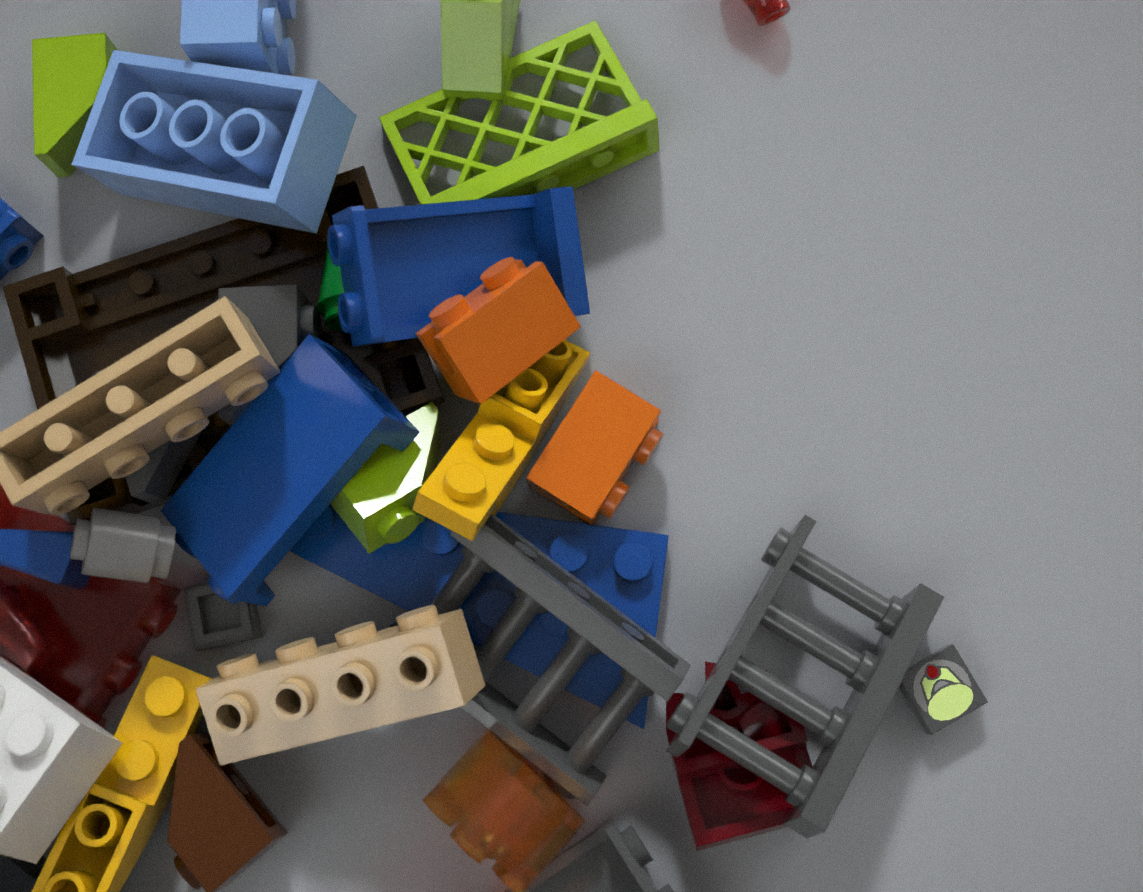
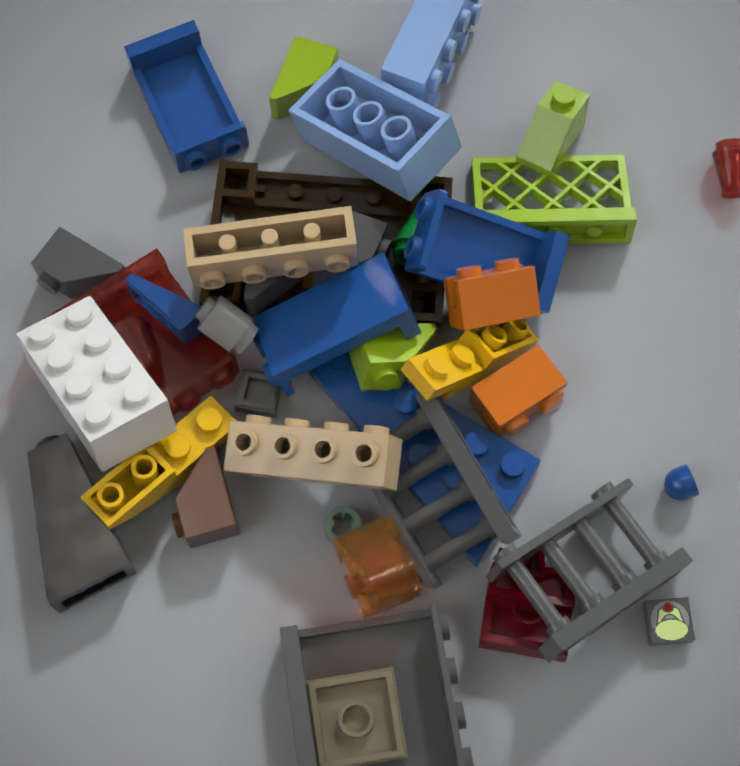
camera: 20 degrees right, 10 degrees down
(411, 766) = (340, 512): none -> sand green bush
(876, 482) = (680, 483): none -> blue hinge

